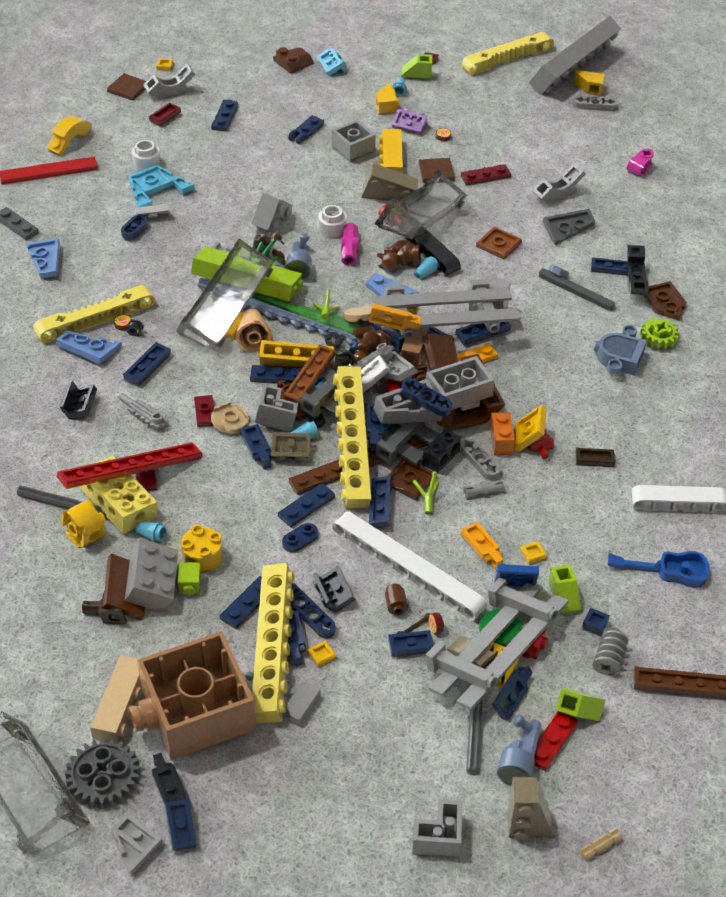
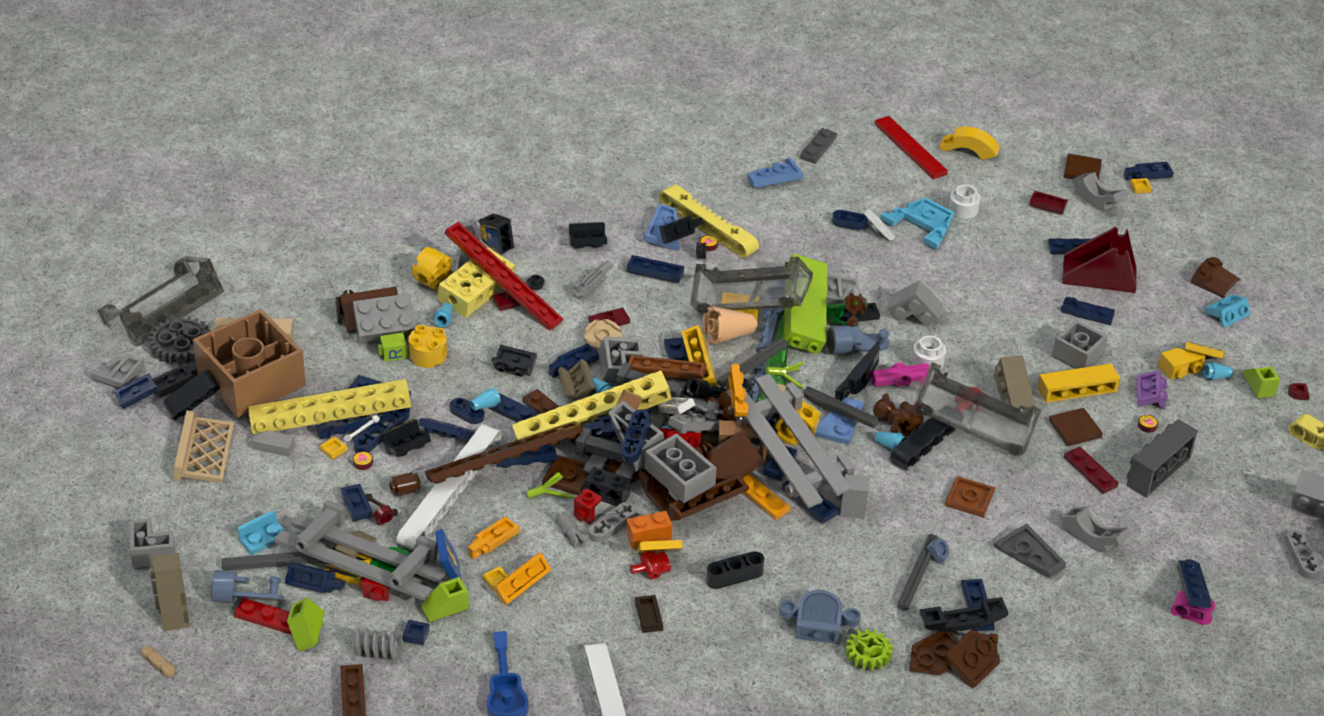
camera: 75 degrees right, 5 degrees down
(43, 464) = (496, 232): none -> black torso
(104, 331) = (679, 228): none -> black hinge
(128, 450) = (536, 282): none -> black plate
(151, 54) = (1149, 171): none -> dark blue hinge
(217, 763) = (191, 394): none -> black beam
(243, 486) = (514, 360): none -> black bracket
(262, 104) = (1102, 263): none -> dark red ladder
(287, 784) = (187, 441): none -> tan fence
(303, 513) = (486, 399): none -> medium azure cone
(309, 639) = (347, 438): none -> white hinge
(310, 322) = (756, 360): none -> dark grey axle
(324, 555) = (448, 429): none -> dark blue hinge
(344, 262) = (860, 375): none -> black piece
(347, 631) = (362, 460): none -> tile
(366, 399) = (630, 398): none -> medium nougat tile
(378, 83) = (1204, 349): none -> yellow tile
(380, 286) = (840, 407): none -> dark grey axle
(393, 508) = (497, 454): none -> reddish brown plate
(437, 730) = (259, 532): none -> medium azure bracket
(466, 468) = (585, 506): none -> red bracket
(495, 132) = (1161, 457): none -> dark grey brick
(541, 532) = (521, 578): none -> light orange plate
(559, 390) = (735, 570): none -> black beam
(625, 153) = (1193, 583): none -> dark blue plate
(676, 279) = (973, 657): none -> reddish brown tile

